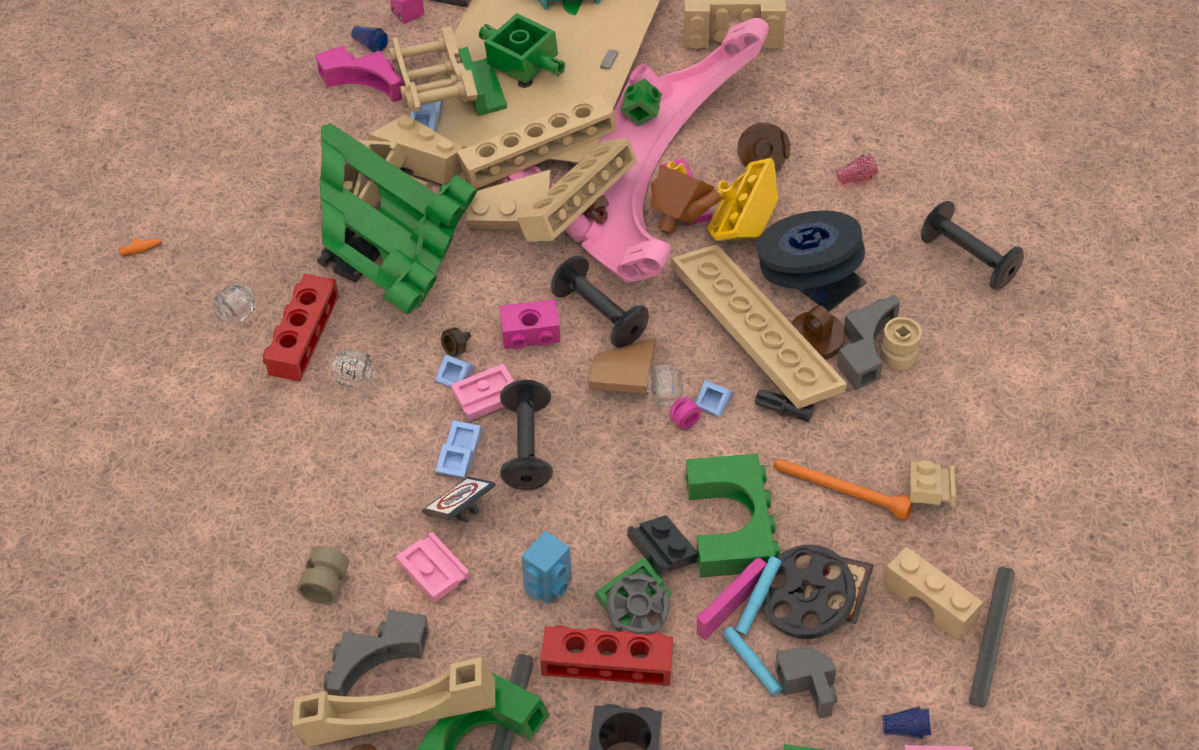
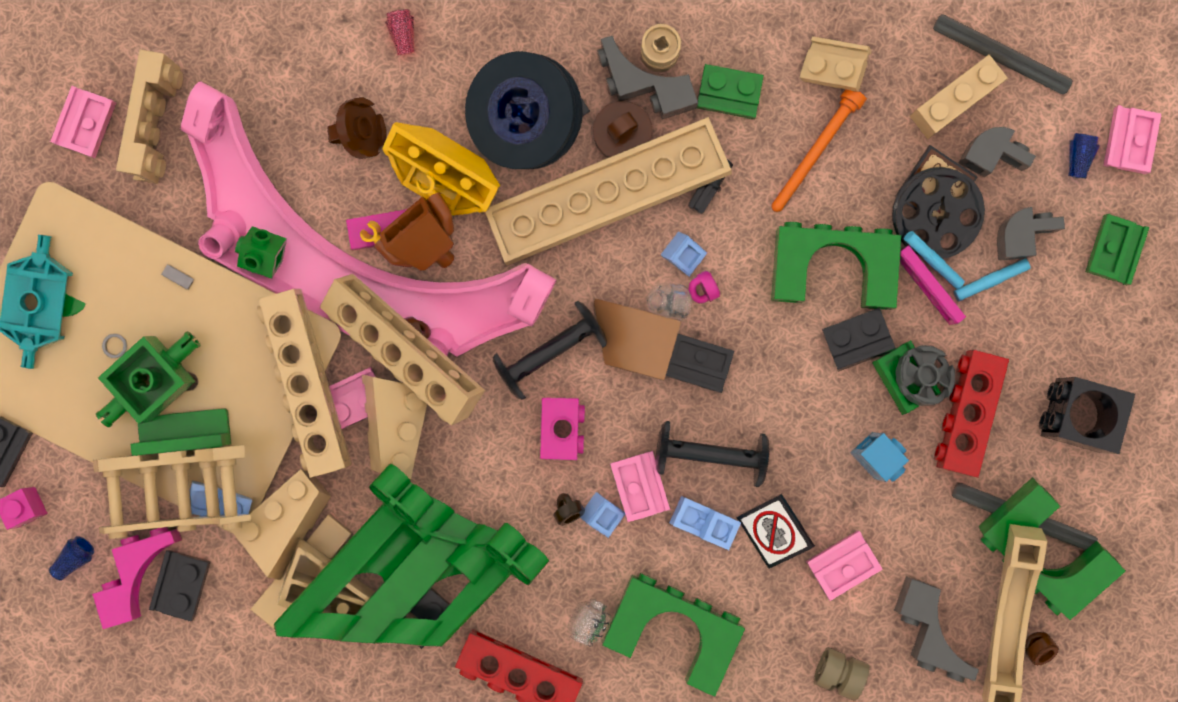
camera: 80 degrees left, 35 degrees up
(354, 468) = (717, 632): none -> green arch
(355, 104) = (179, 585): none -> black plate
(611, 420) = (699, 363): none -> black plate
(879, 411) = (730, 91): none -> green plate
(890, 631) = (995, 144): none -> dark grey brick

